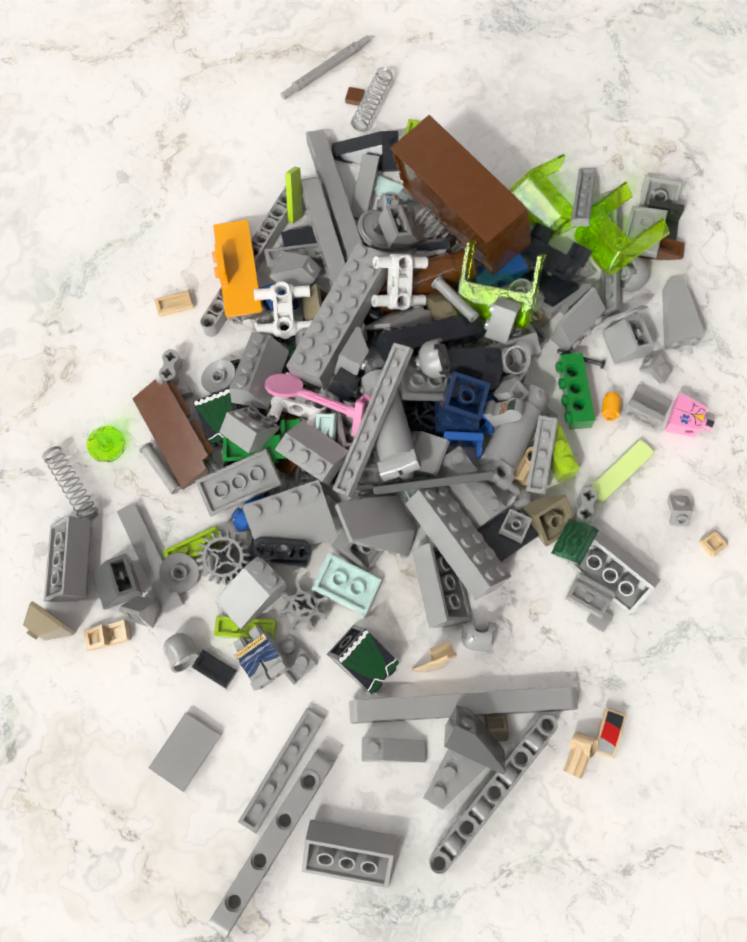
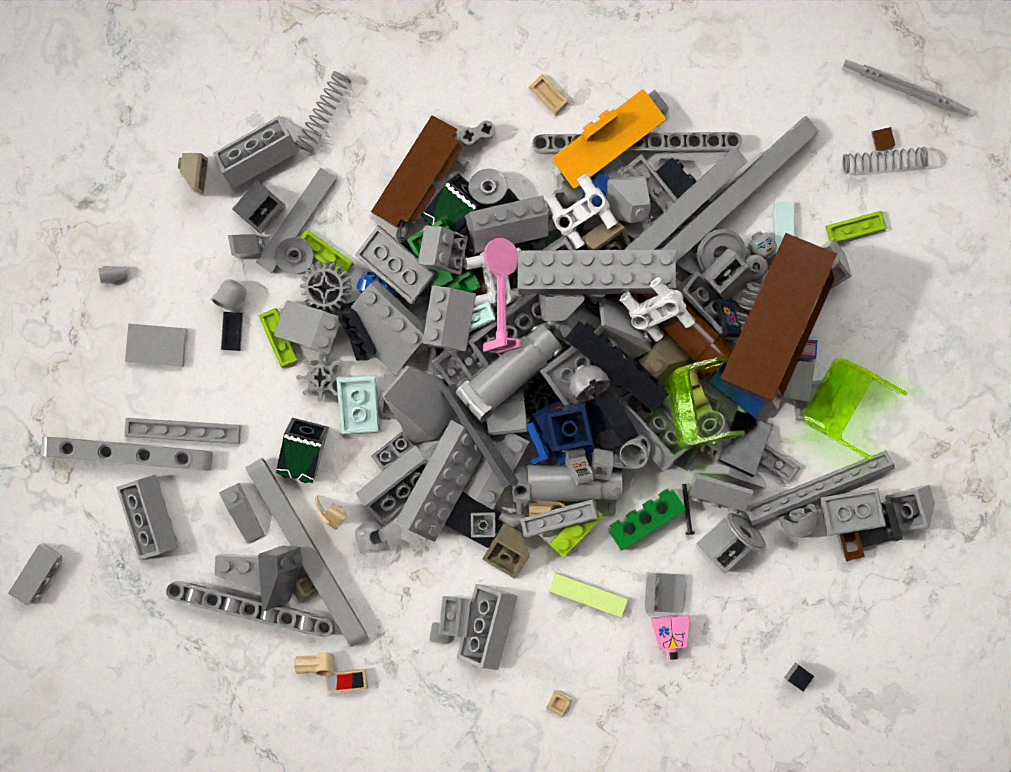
camera: 70 degrees right, 20 degrees up
(91, 759) = (112, 273): none -> light grey cone
(105, 444) = (377, 117): clear neon green tile -> none
(106, 636) = (212, 225): tan slope -> none
(160, 468) = (379, 181): light grey pin -> none
(261, 658) = (258, 367): light grey hips -> none
(294, 194) = (716, 149): lime tile -> none
(298, 658) = (272, 391): light grey plate -> none
(344, 384) = (529, 311): black brick -> none
(364, 185) = (770, 209): light grey tile -> none
(372, 420) = (500, 358): light grey plate -> none
(375, 144) = (820, 194): black wedge -> none
(406, 576) = (392, 451): none -> light grey slope
(455, 299) = (668, 369): light grey pin -> none
(502, 319) = (665, 423): light grey brick -> none
(555, 261) = (771, 436): black bracket -> none
(574, 541) = (492, 582): clear green plate -> none
(583, 197) = (861, 436): light grey tile -> none
(586, 507) = (534, 578): light grey axle -> none
(607, 241) = (819, 476): clear neon green windscreen -> none
(611, 406) = (647, 559): light orange brick -> none
(657, 367) = (710, 584): light grey bracket -> none
(680, 316) = (777, 584): light grey slope -> none
(680, 510) = (575, 661): light grey bracket -> none

